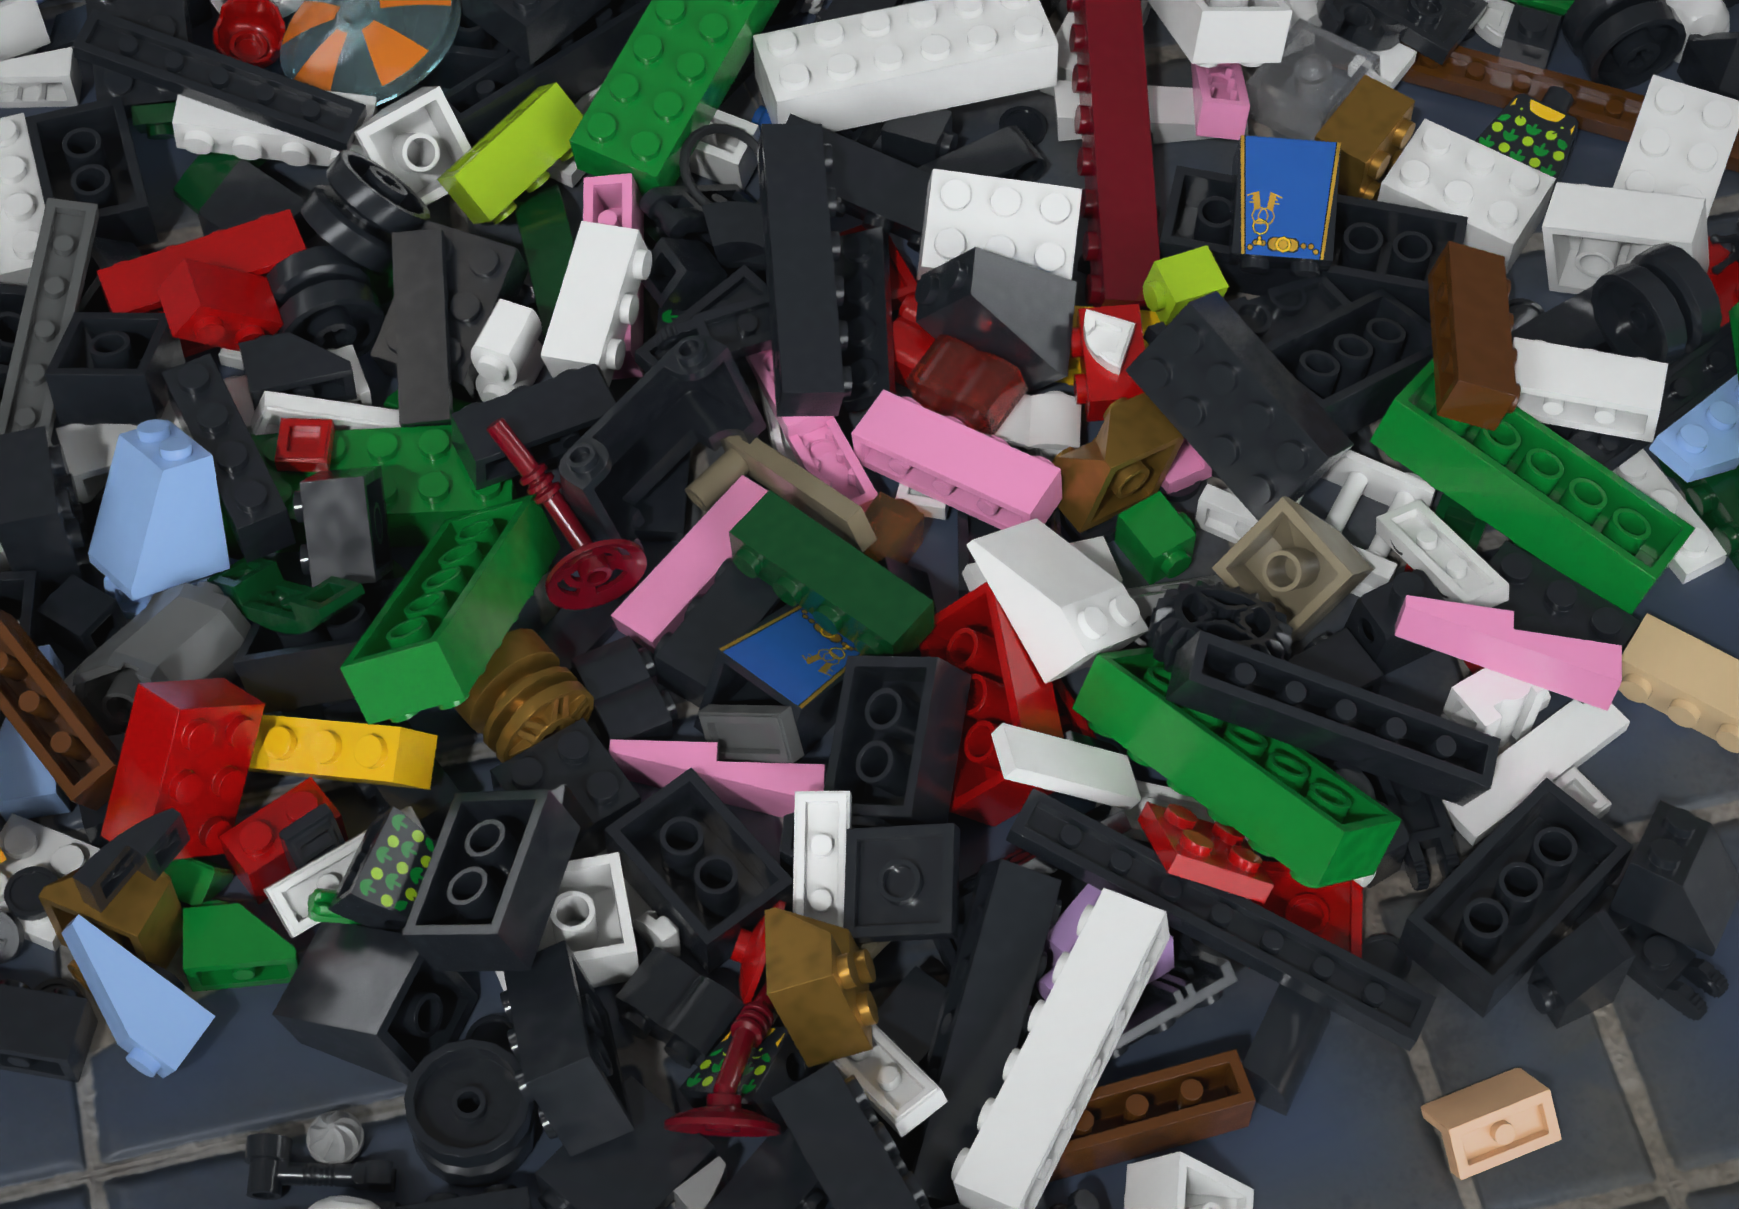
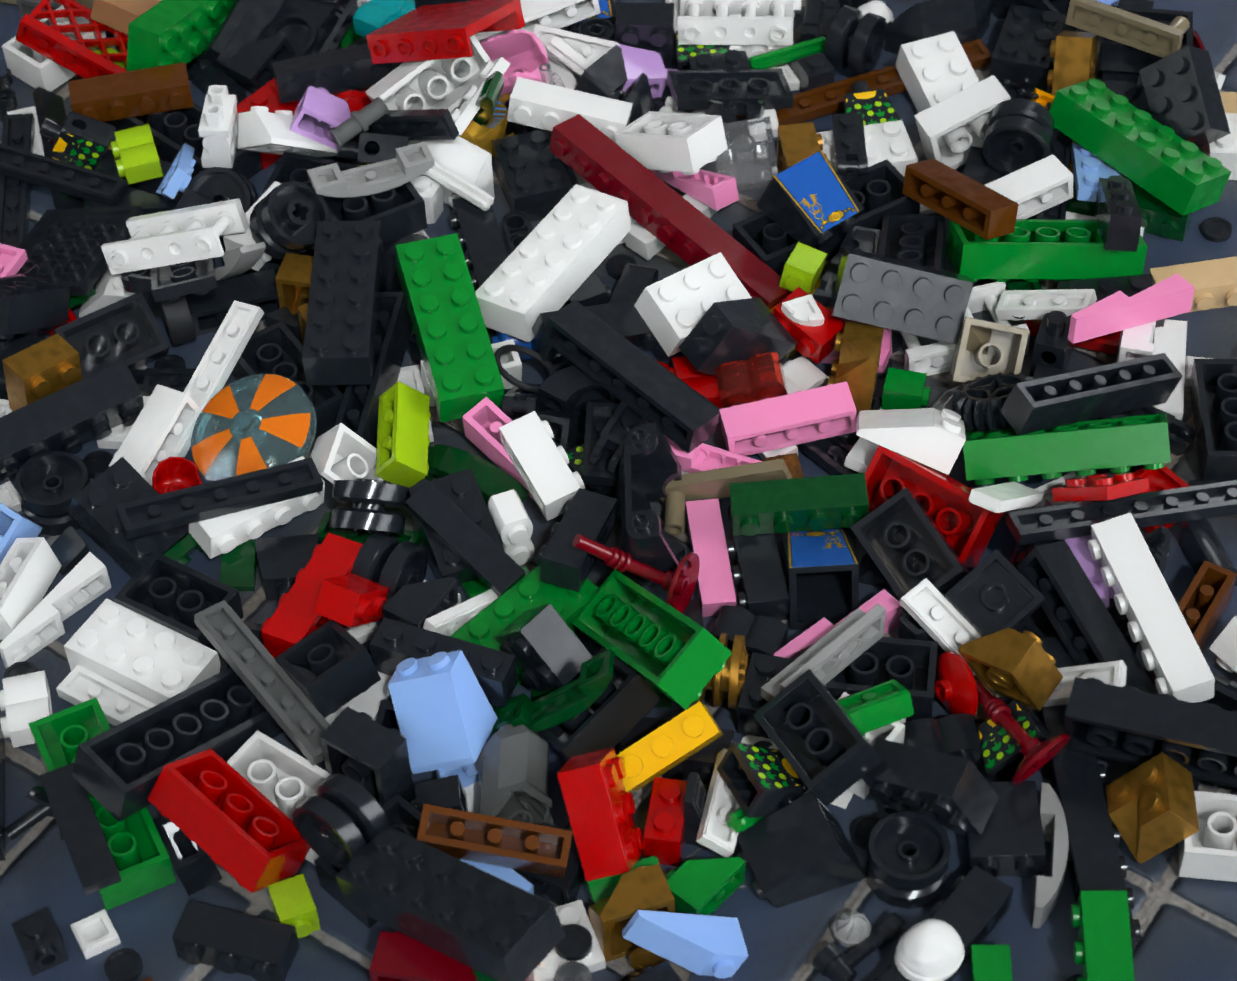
camera: 40 degrees left, 10 degrees down
(143, 847) = (637, 860): black slope -> none
(304, 445) = (470, 629): red tile -> none
(619, 898) = (878, 705): none -> green slope
(642, 792) = (833, 650): none -> light grey fence
(752, 732) = (835, 599): dark grey tile -> none
(1436, 163) = (849, 143): none -> black plate
(1657, 507) = (1118, 214): none -> black brick

